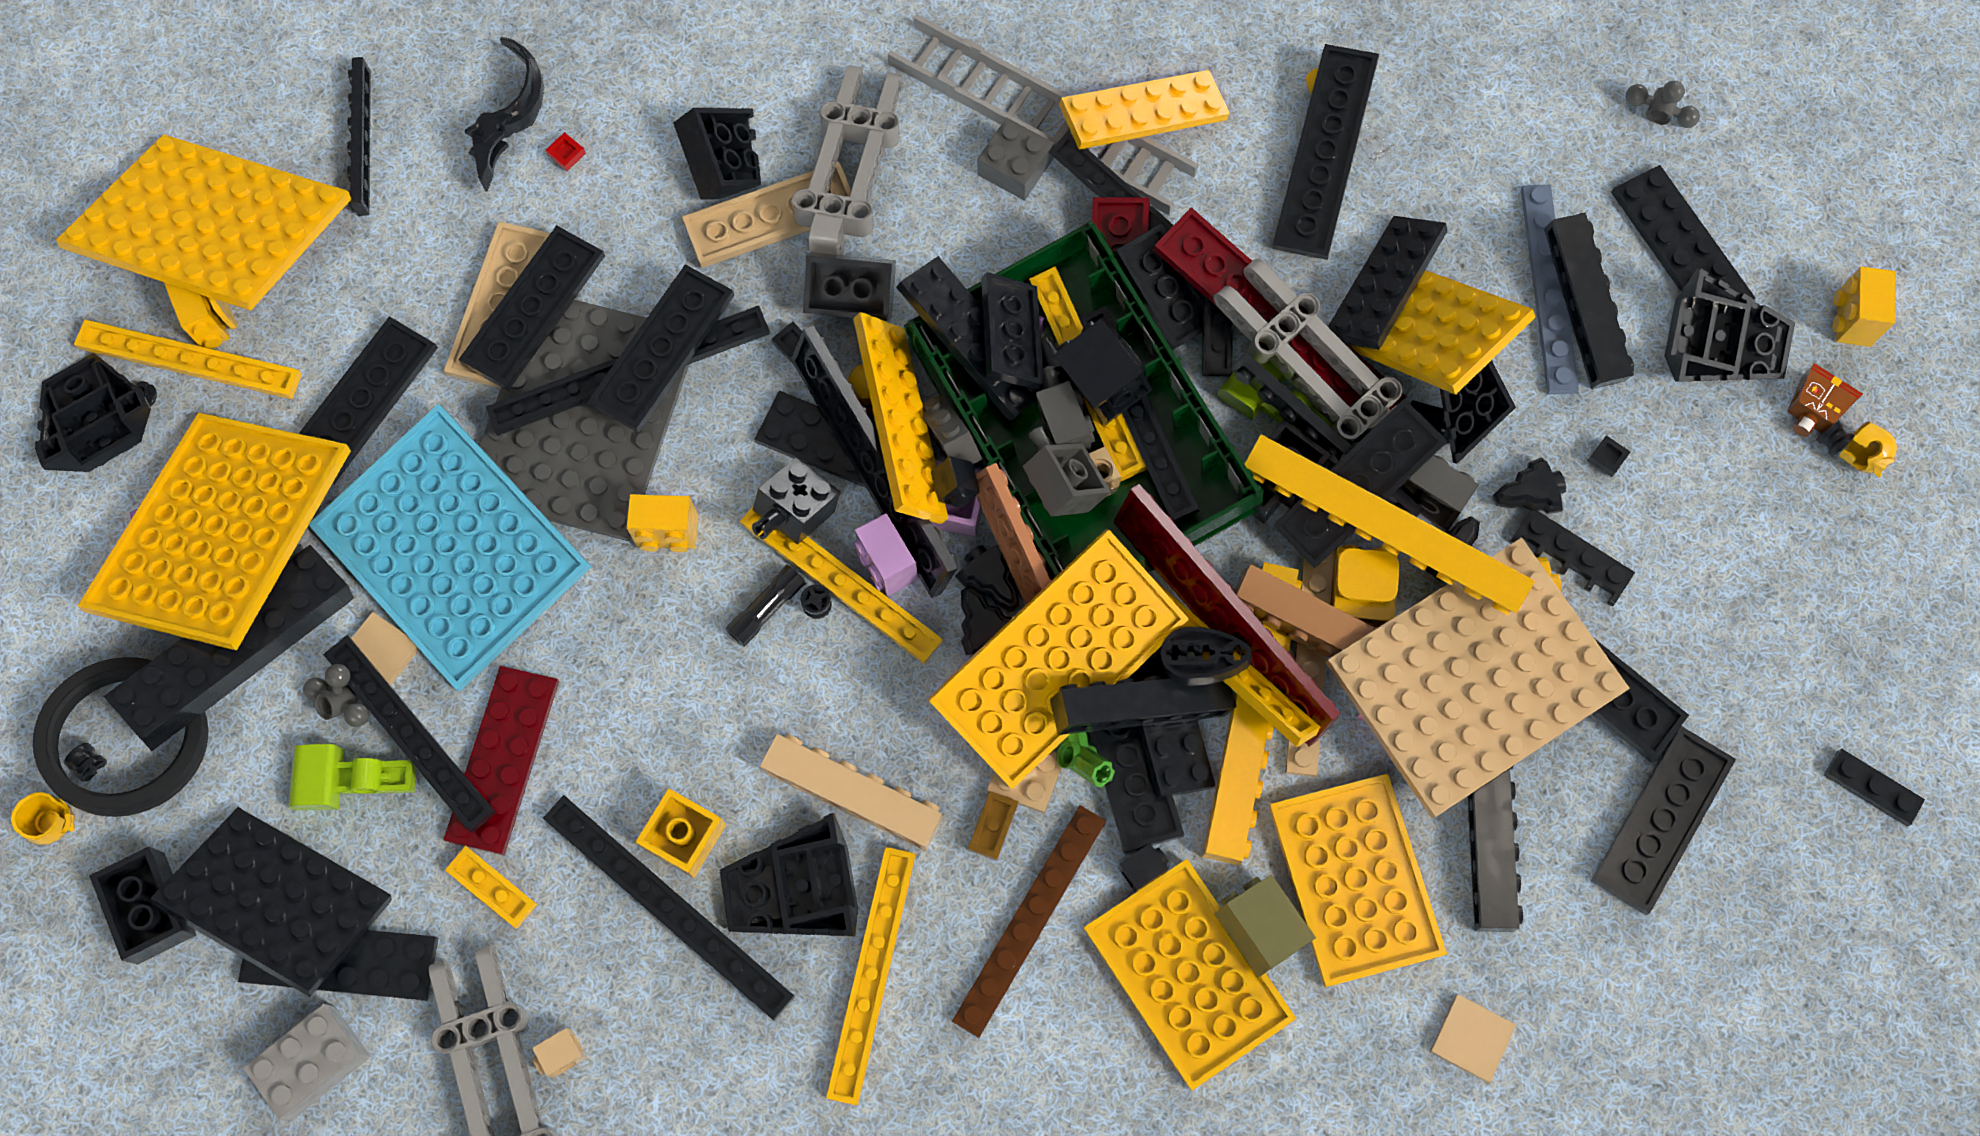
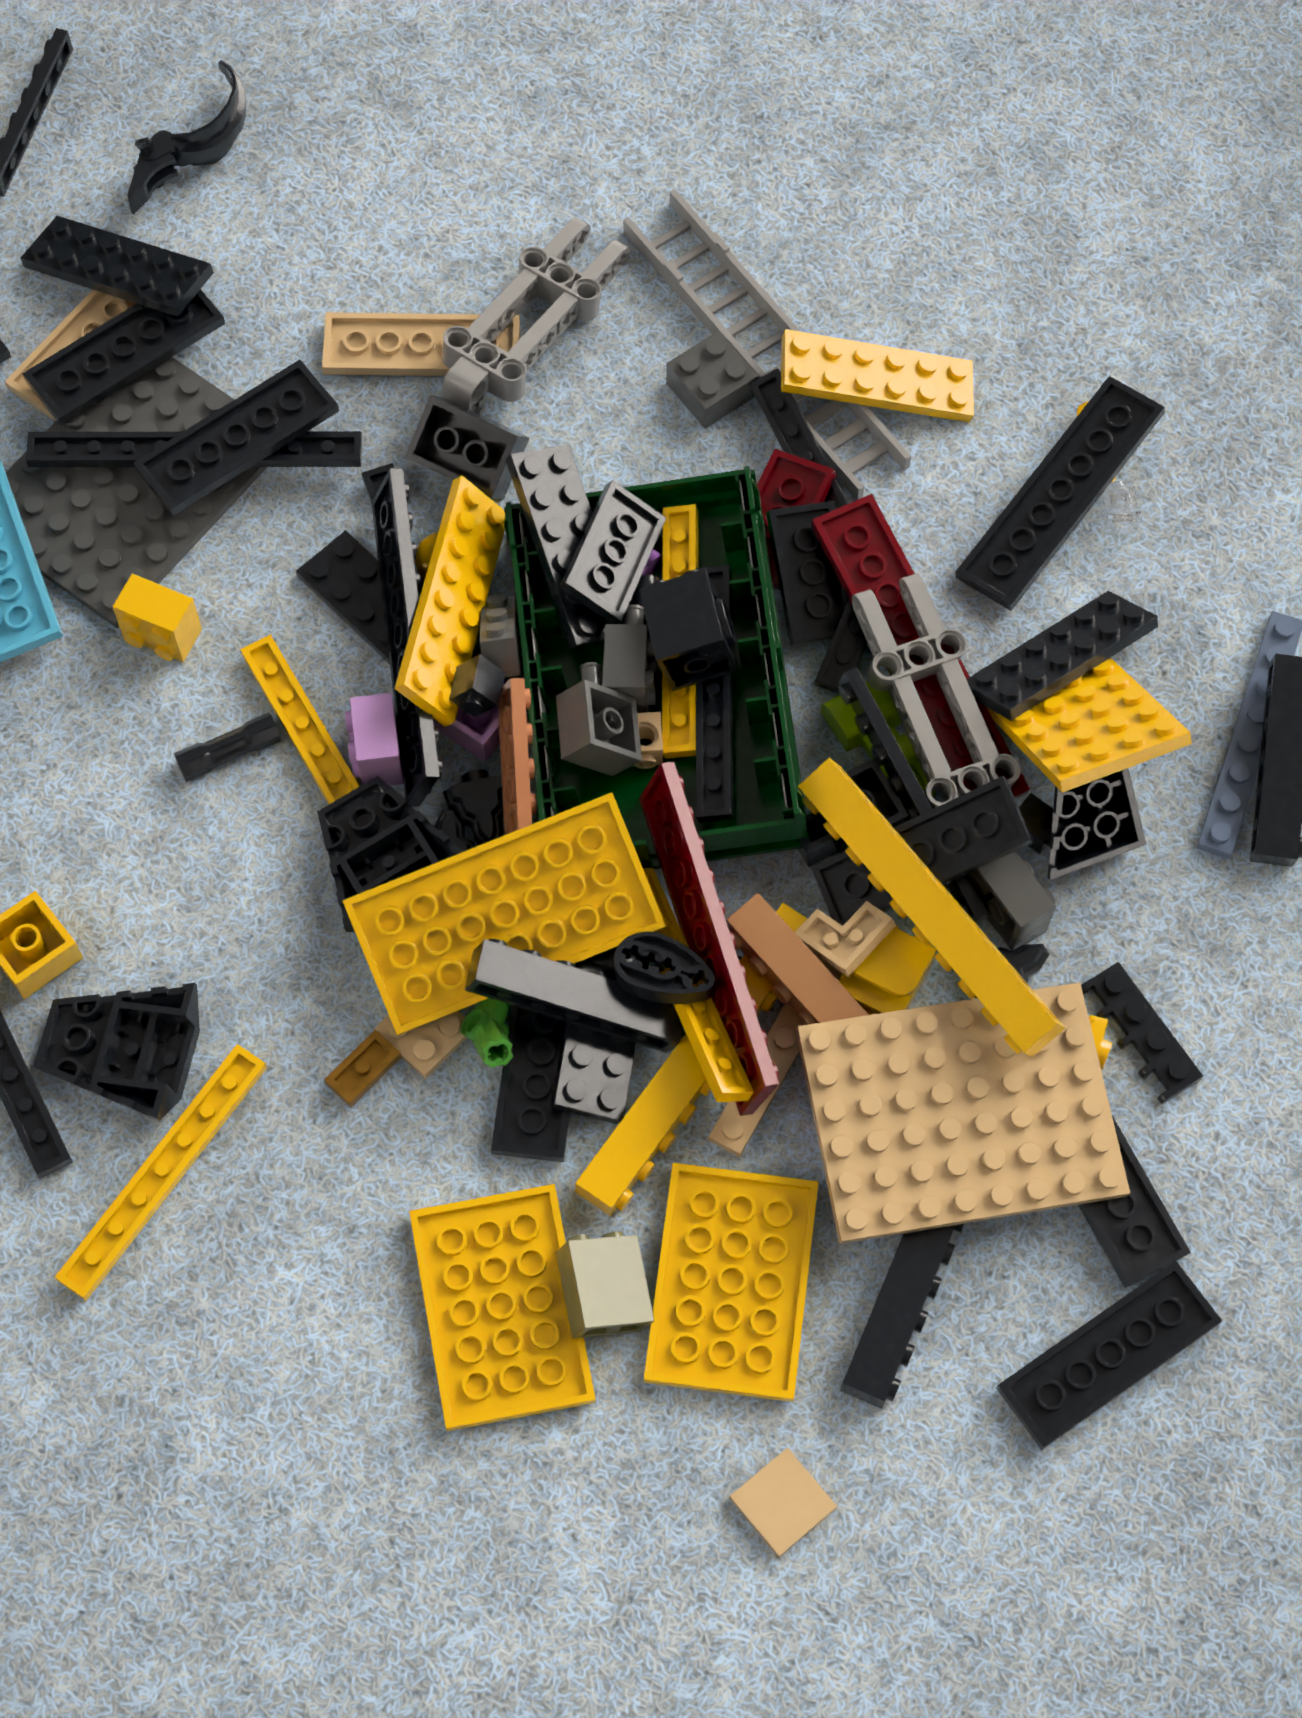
camera: 20 degrees right, 5 degrees down
(494, 240) = (117, 265): none -> black plate
(565, 151) = (235, 202): red plate -> none
(719, 150) = (397, 257): black wedge -> none
(794, 502) = (304, 649): black brick -> none
(813, 596) = (281, 755): black wheel -> none
(852, 792) = (229, 974): tan brick -> none
(929, 639) = (377, 839): none -> black wedge
(1028, 922) = (355, 1184): reddish brown plate -> none
(1144, 867) = (503, 1172): black brick -> none
(1334, 577) = (848, 944): none -> tan plate
(1534, 489) = (1128, 942): black rock -> none
(1609, 456) = (1232, 939): black plate -> none

